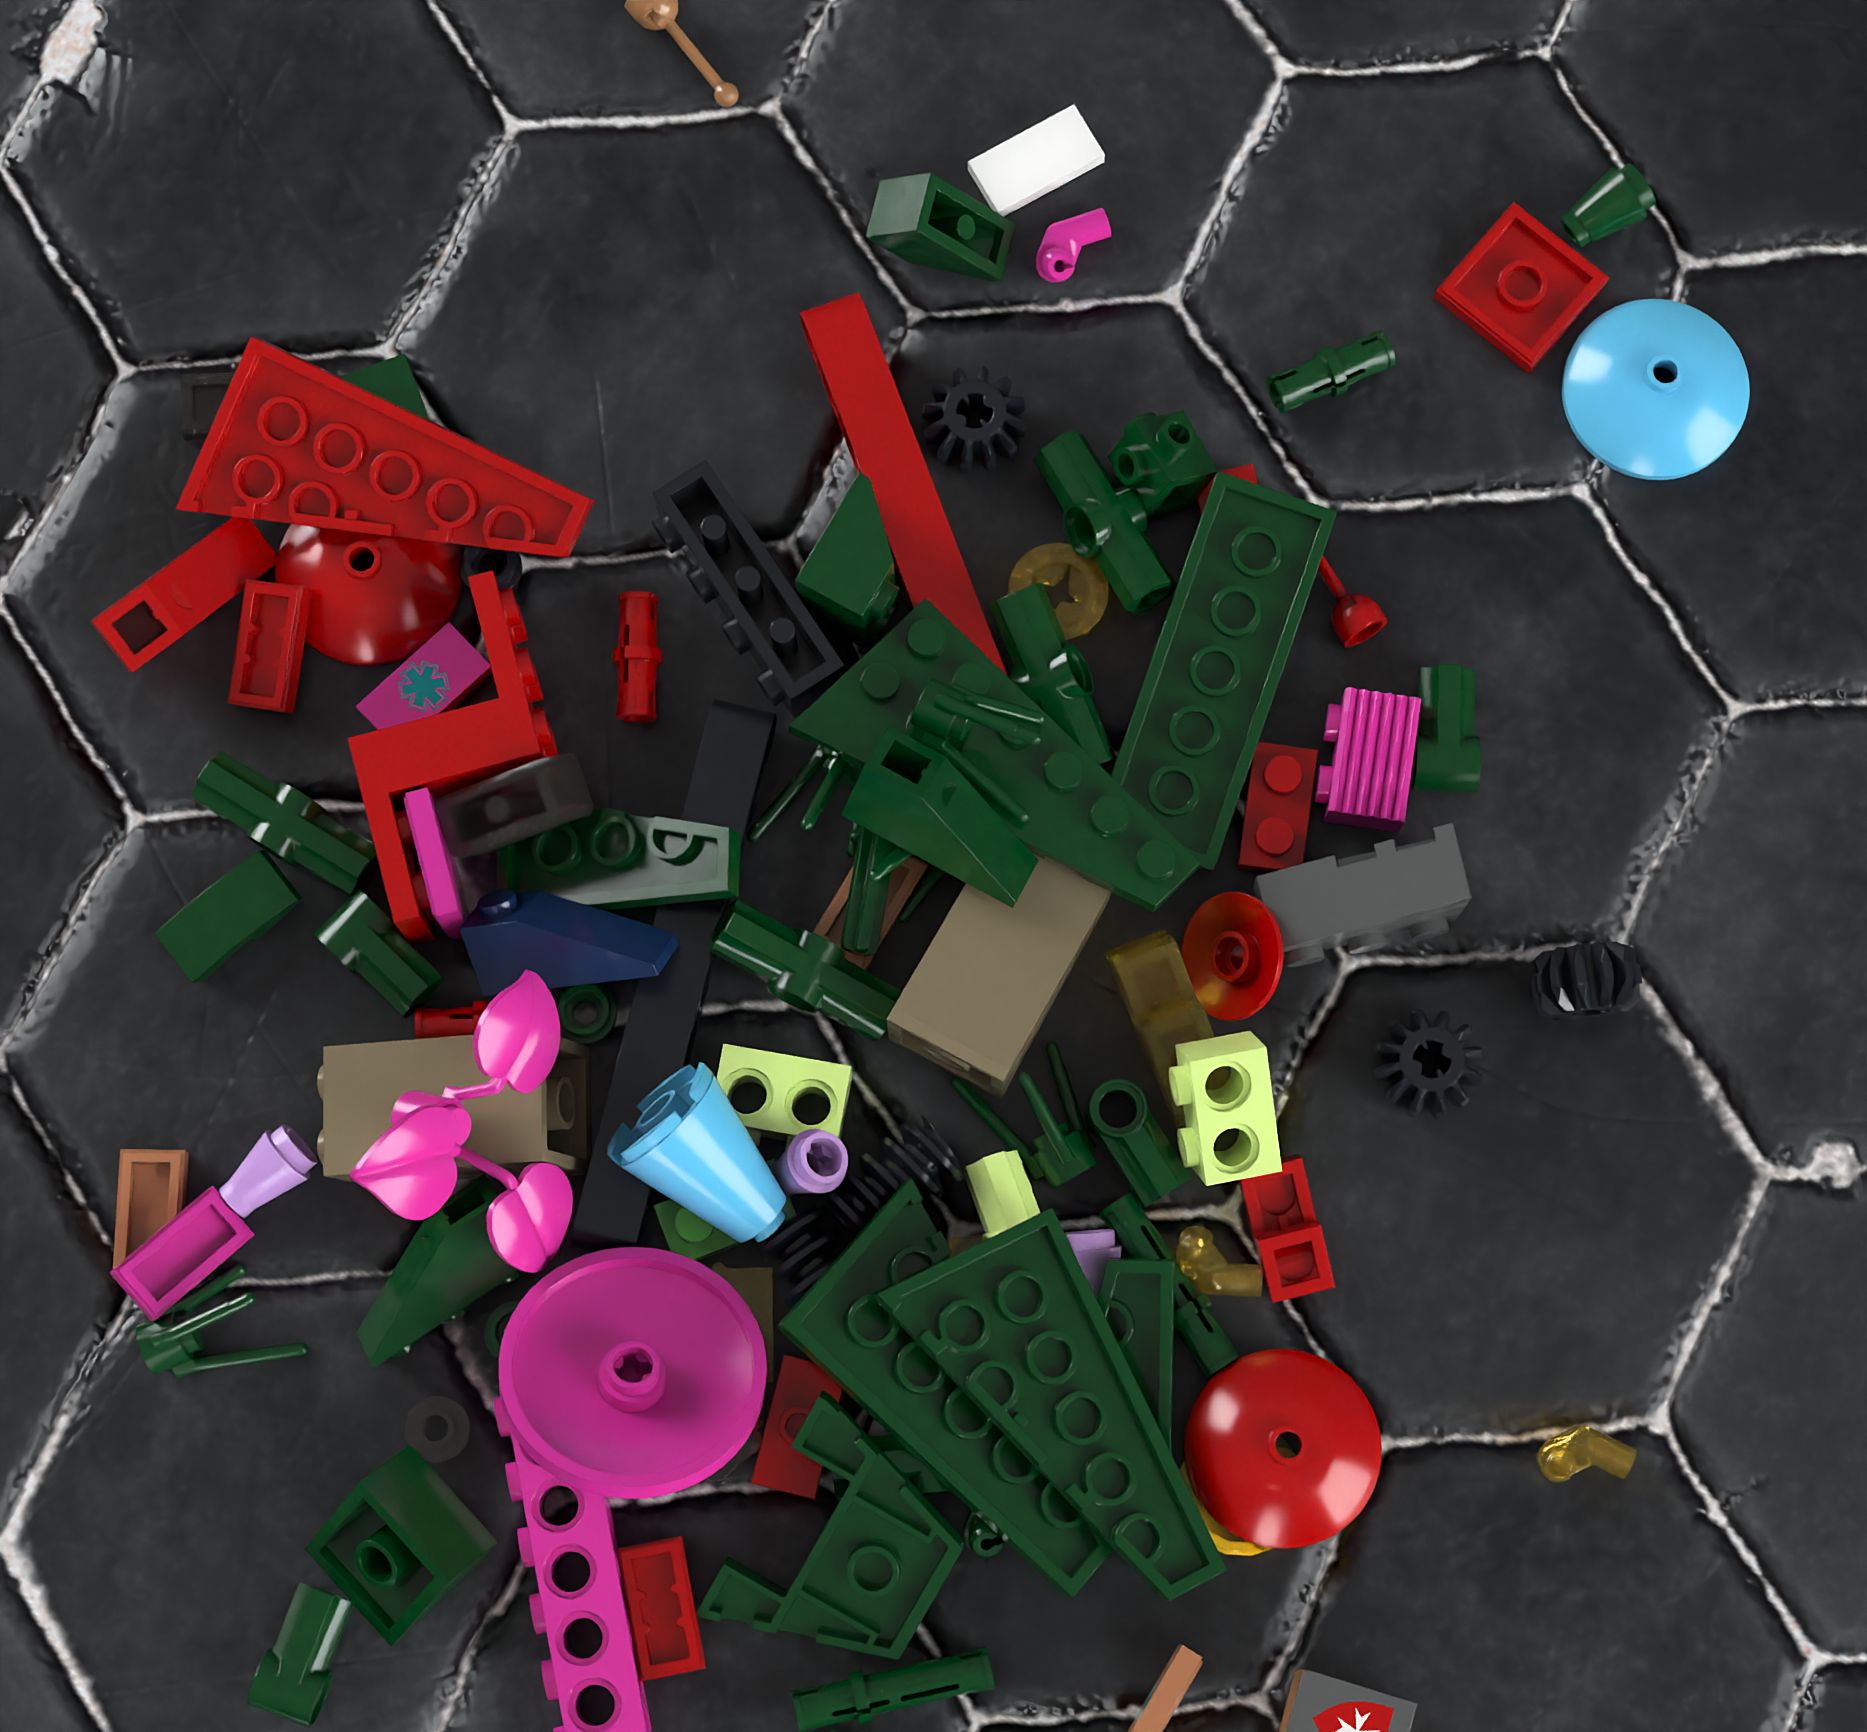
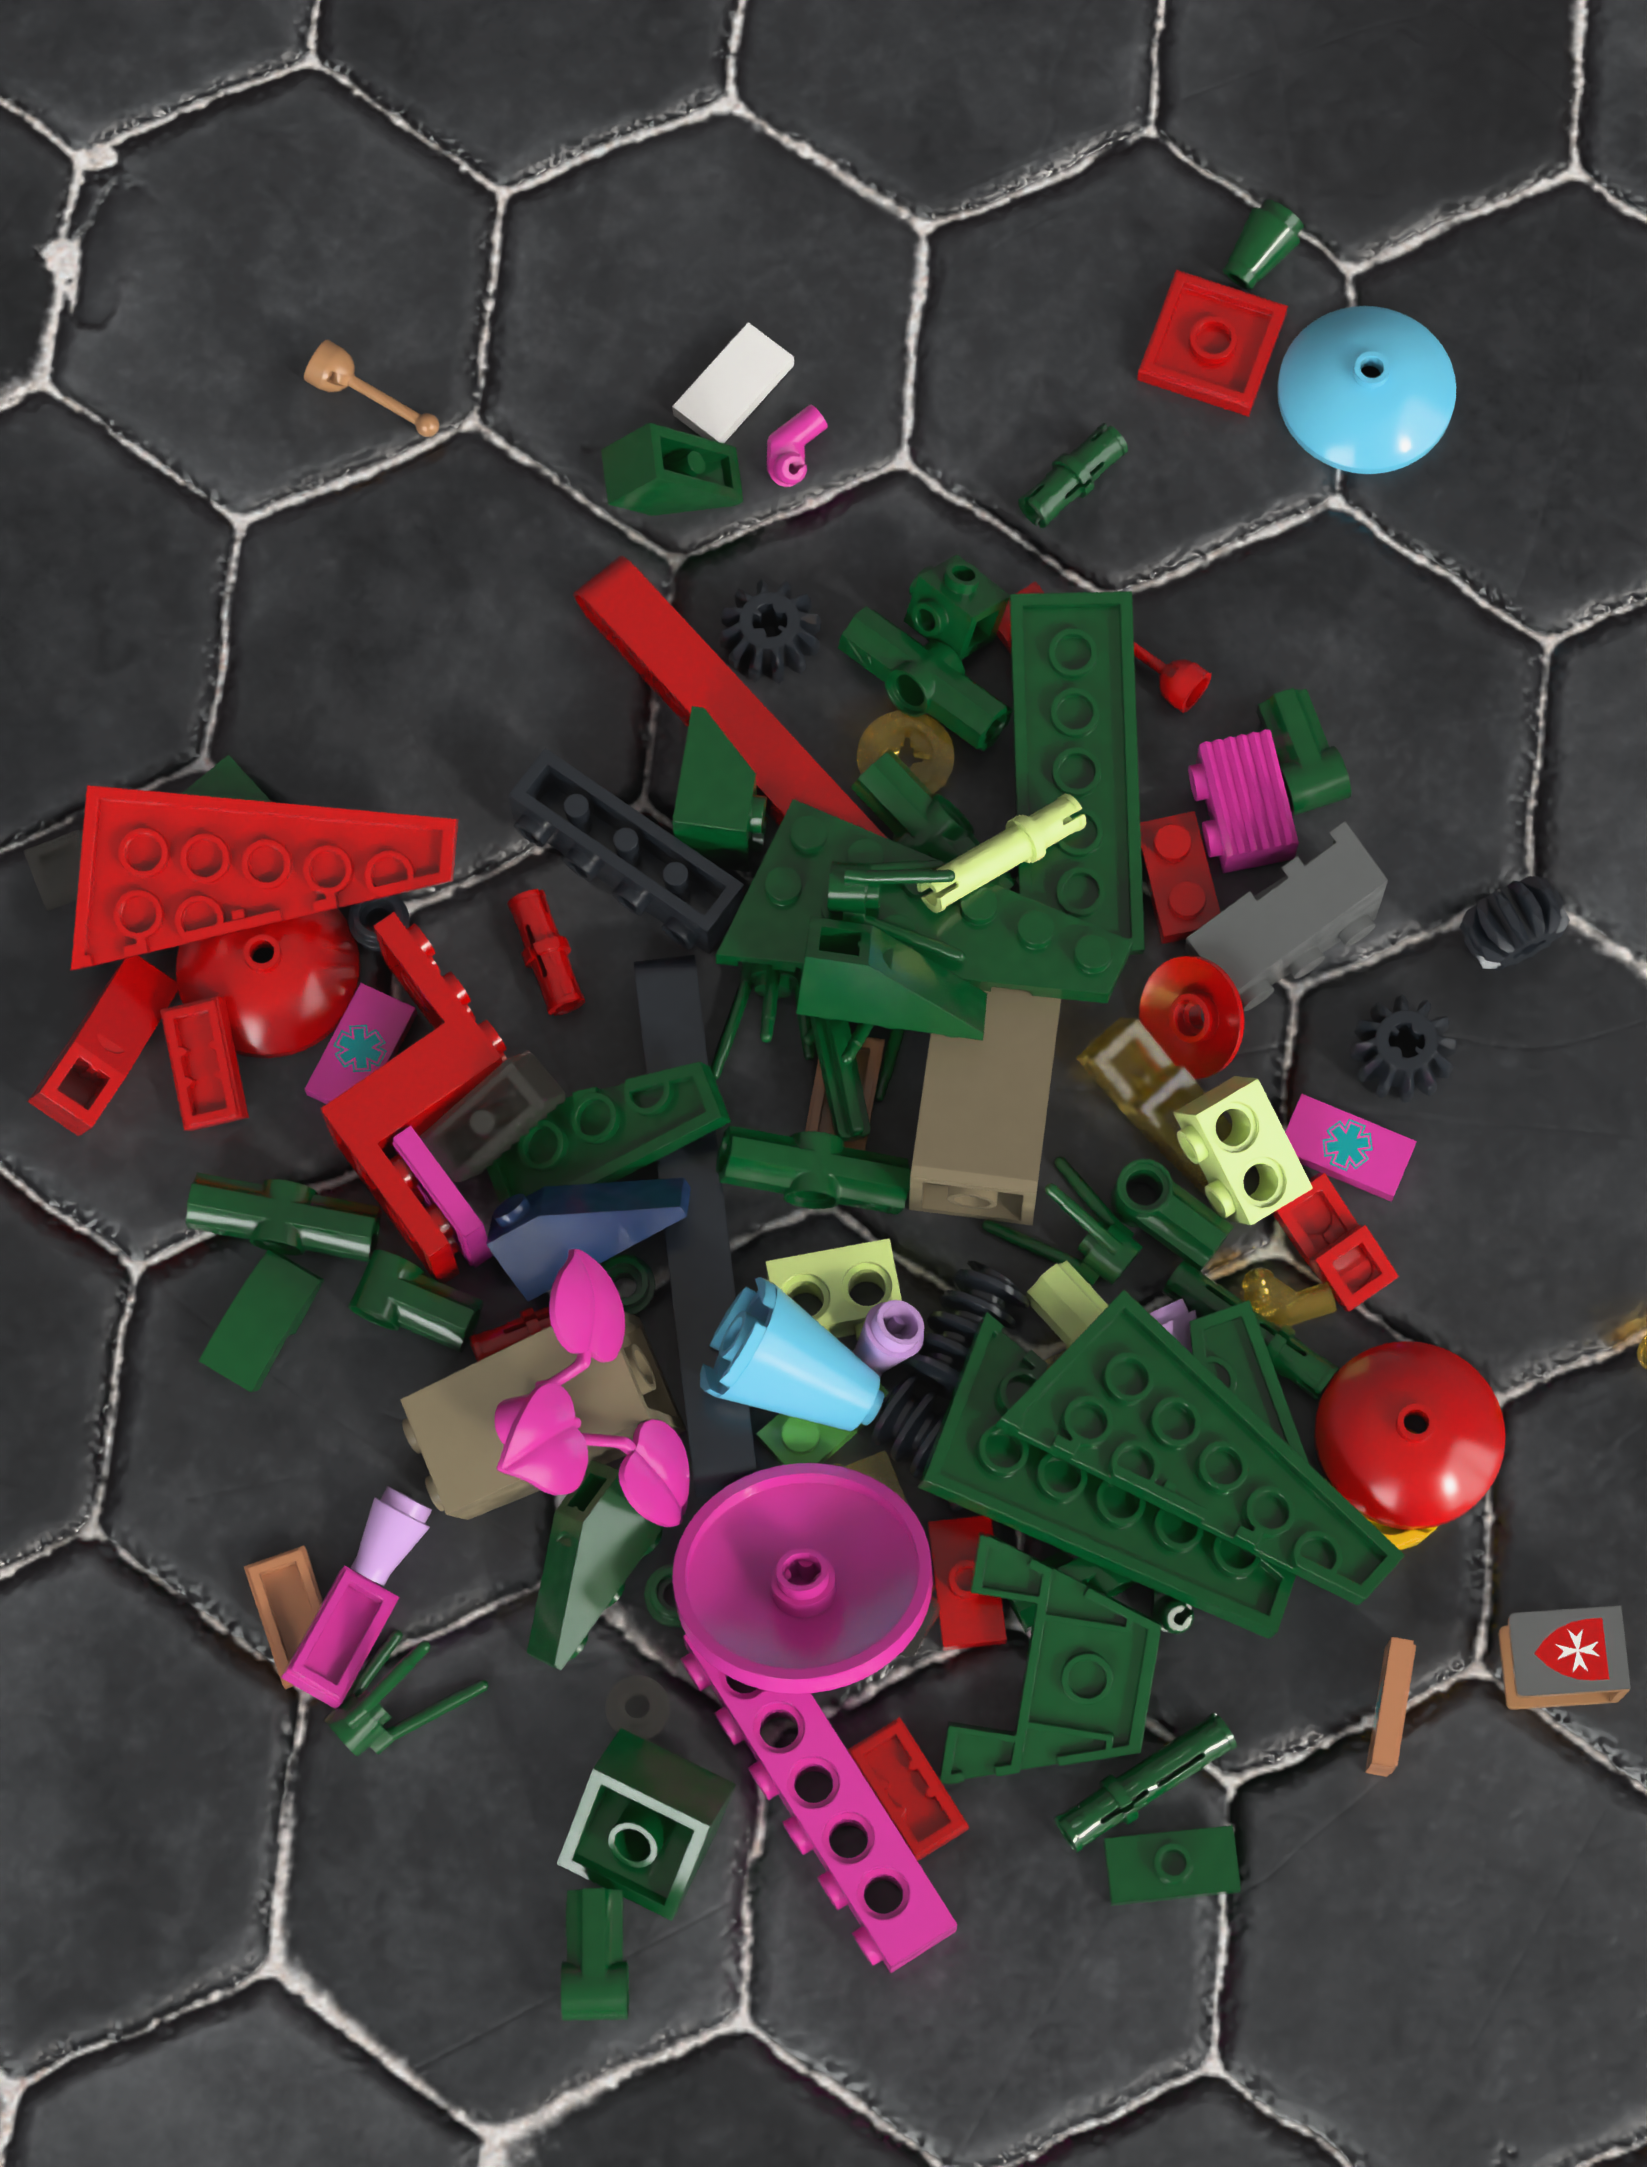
camera: 20 degrees left, 5 degrees down
(1130, 722) = (1020, 842): none -> yellowish green pin
(1336, 1139) = (1349, 1147): none -> dark pink tile

